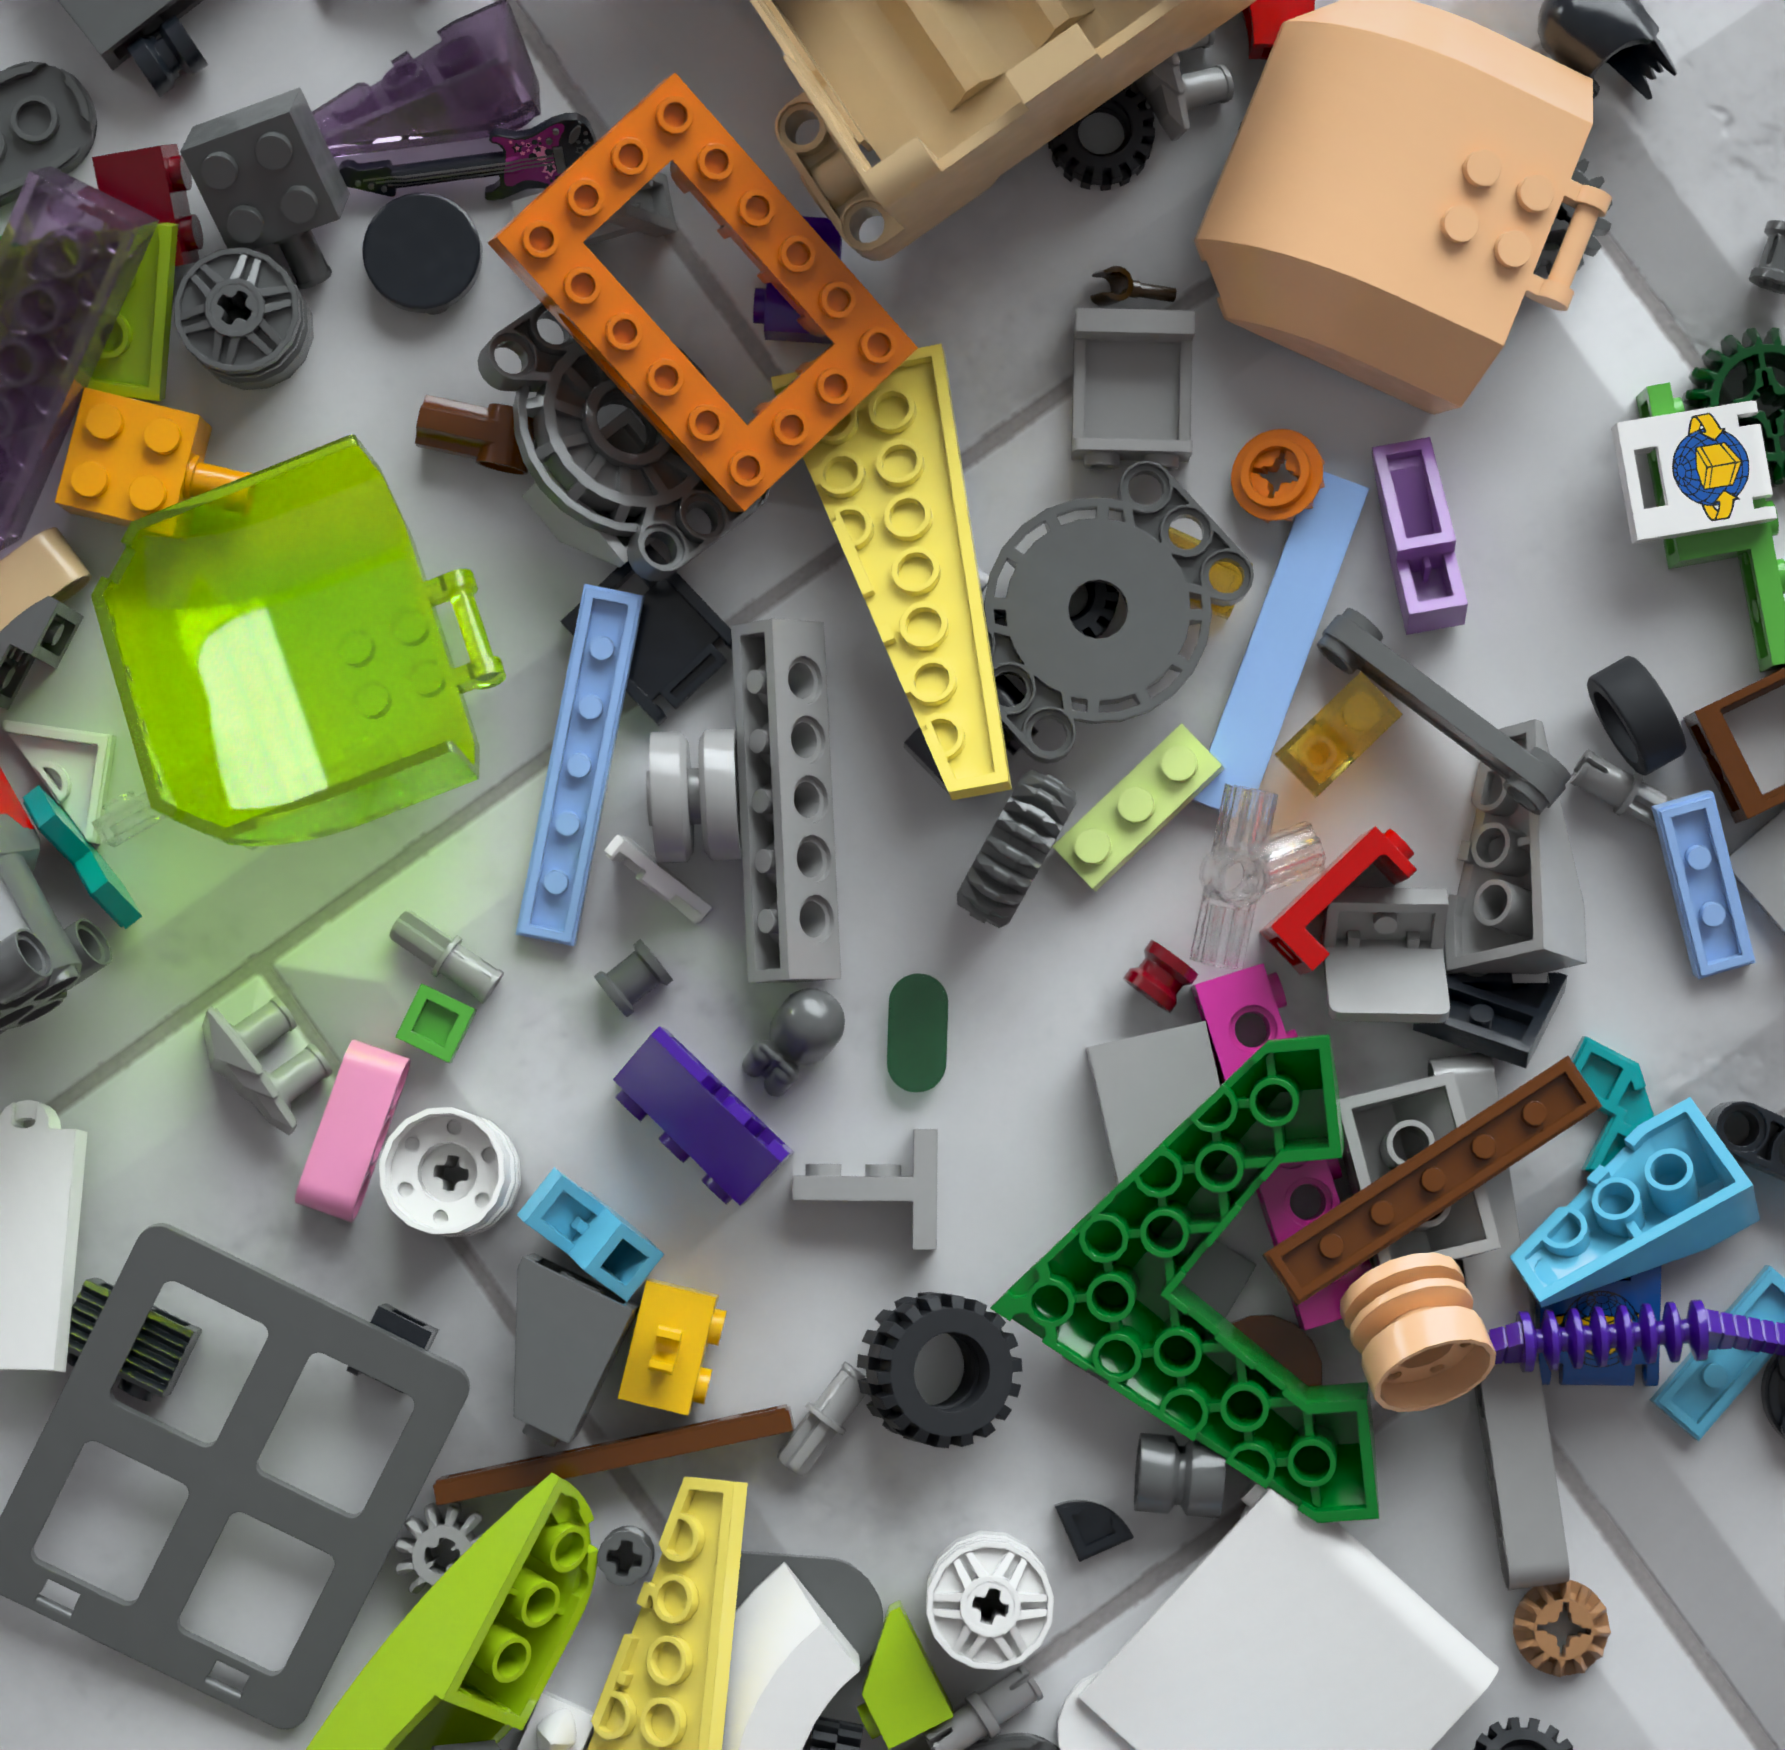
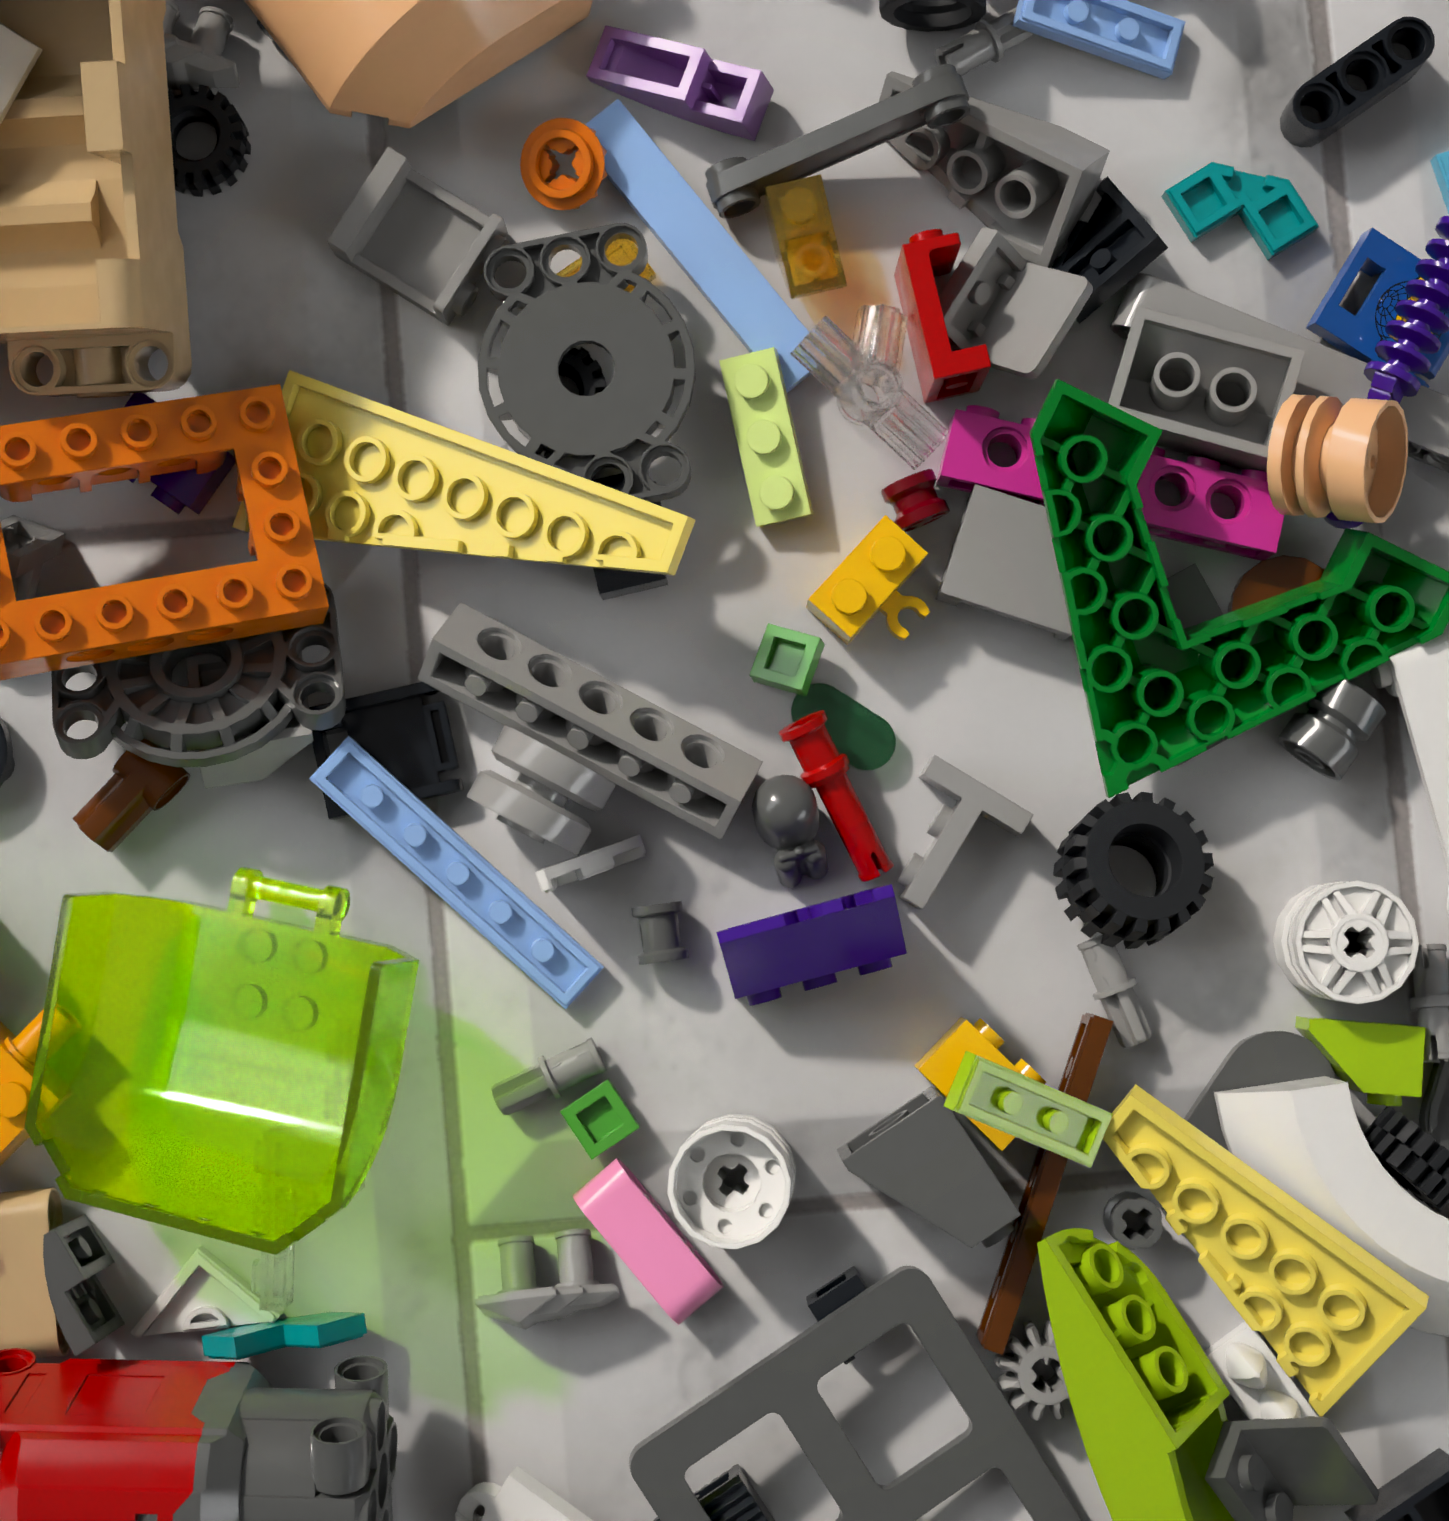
camera: 60 degrees left, 0 degrees up
(591, 1234) = (852, 1092): medium azure brick -> none
(666, 1397) = (1027, 1109): none -> lime tile
(865, 1041) = (826, 771): none -> red pin
(947, 946) = (787, 659): none -> bright green plate
(1016, 848) = (743, 553): dark grey gear -> none
(1060, 979) = (870, 583): none -> yellow brick
(1091, 1527) = (1329, 824): black tile -> none
(1124, 286) = (332, 197): dark brown hand -> none
(1431, 1180) = (1219, 374): reddish brown tile -> none
(1650, 1205) = (1335, 220): medium azure wedge -> none

